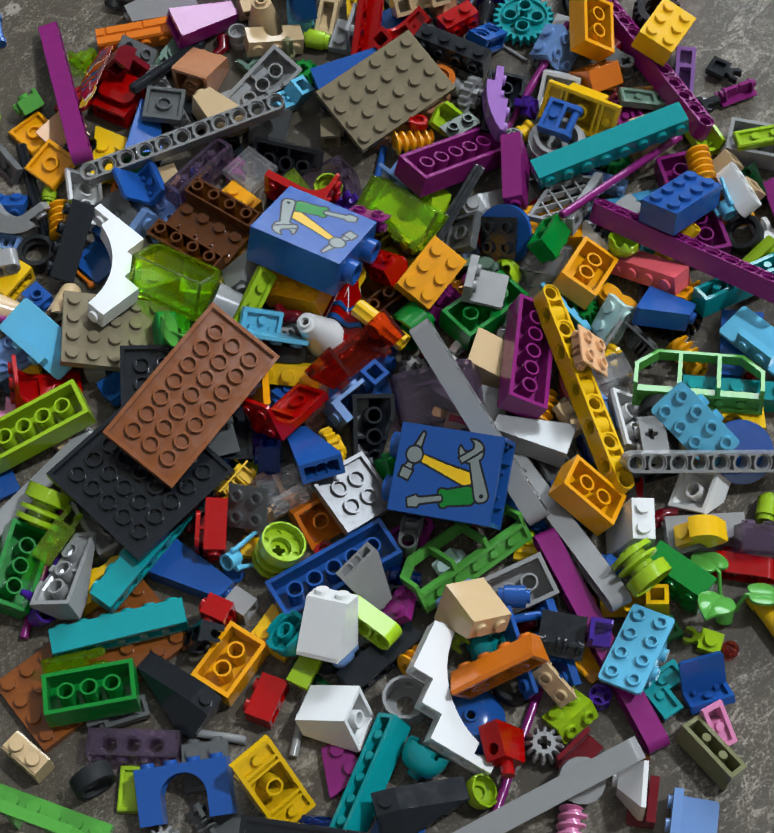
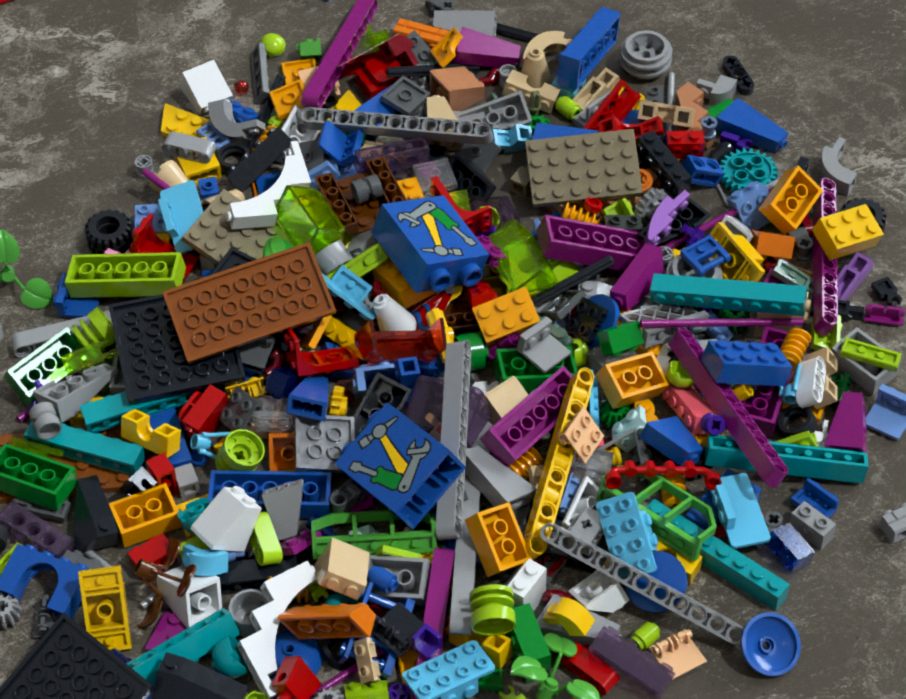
camera: 30 degrees right, 10 degrees down
(70, 629) = (45, 420): none -> light grey wheel
(164, 583) = (137, 429): none -> yellow arch
(166, 37) = (445, 49): none -> light orange tile
(205, 219) = (366, 189): none -> dark grey wheel
(249, 444) = (278, 362): none -> dark red arm
(295, 693) = (150, 571): none -> reddish brown plant
(332, 680) = (208, 561): none -> medium azure brick
(503, 563) = (391, 551): none -> lime tile
(648, 378) = (613, 478): none -> red bar
(692, 276) = (707, 424): none -> dark purple wheel

